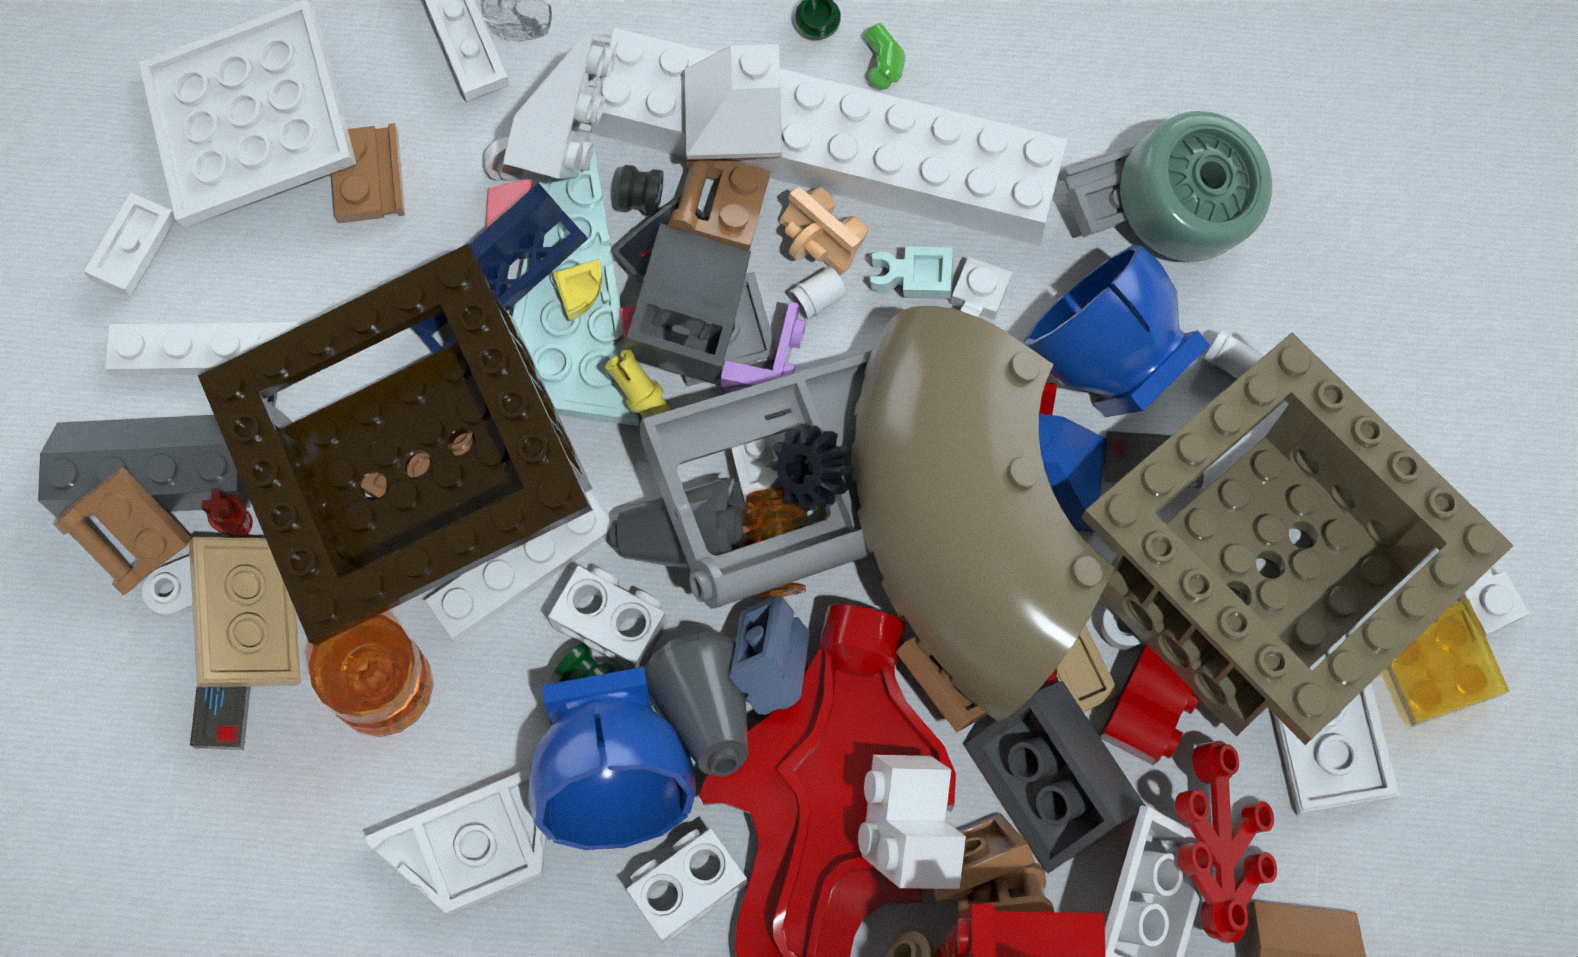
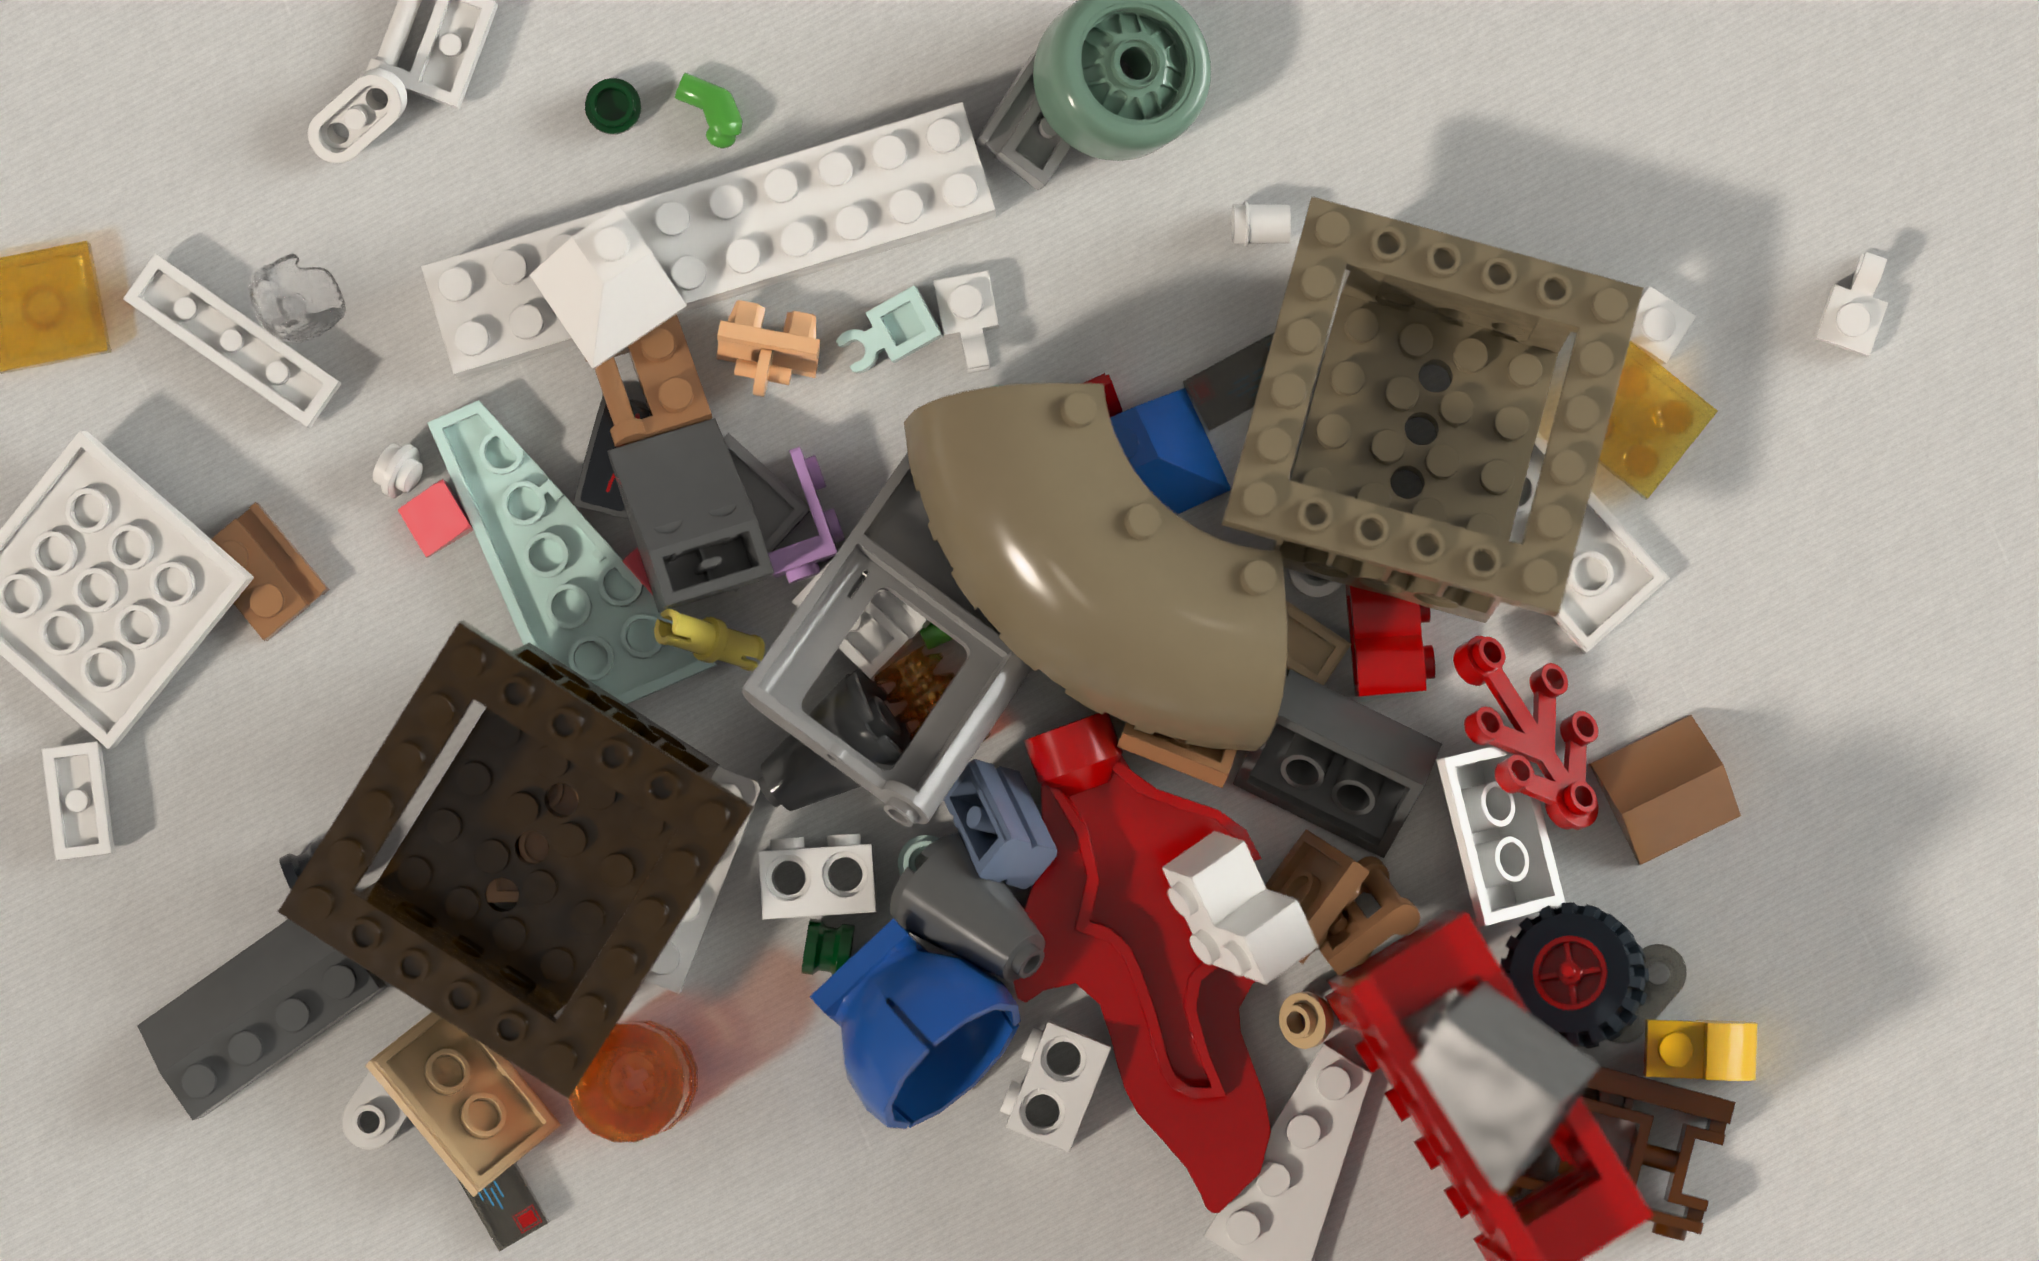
camera: 30 degrees left, 15 degrees up
(135, 522) = (294, 1079): medium nougat plate -> none
(183, 346) = (228, 858): white plate -> none
(227, 514) = (383, 1015): clear red axle -> none
(468, 845) = (827, 1176): white wing -> none
(510, 240) = (462, 576): dark blue fence -> none
(556, 121) = (446, 430): white slope -> none
(579, 287) = (568, 565): light yellow tile -> none
(640, 190) = (557, 418): pearl dark grey wheel -> none
(818, 292) = (806, 414): white piece -> none
(827, 464) = (926, 622): black gear -> none
(1118, 334) = (1133, 288): blue plate -> none

